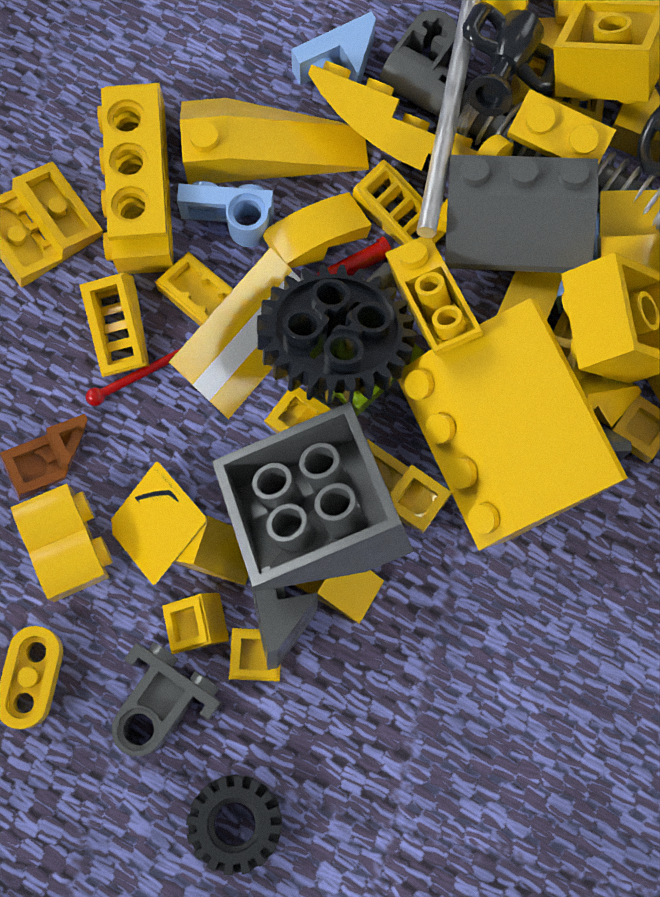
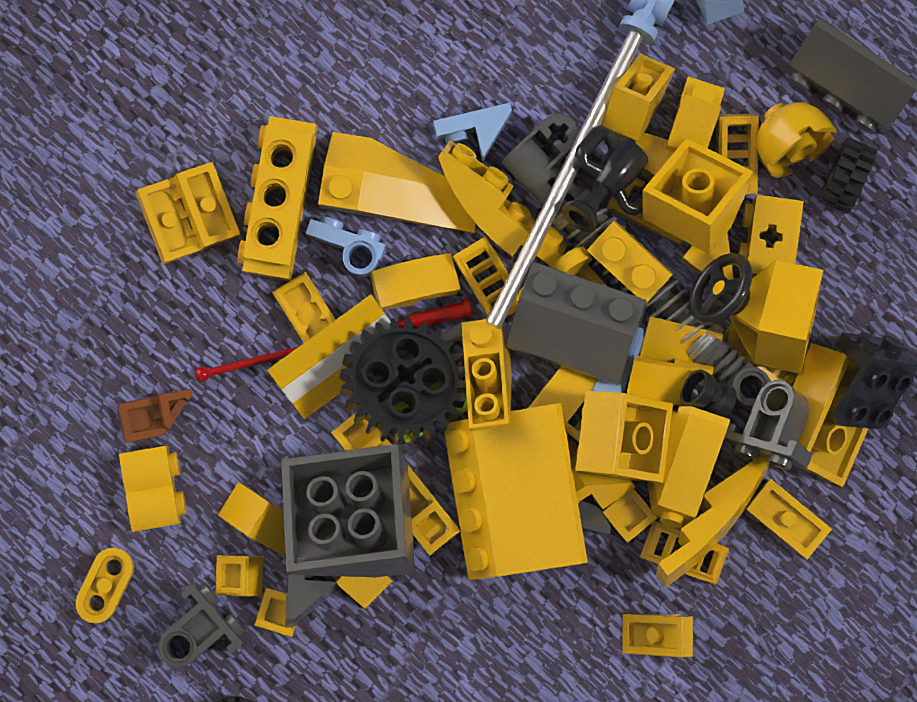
camera: 15 degrees right, 10 degrees up
(92, 293) = (246, 320): yellow slope -> none
(156, 522) = (227, 492): yellow sticker -> none

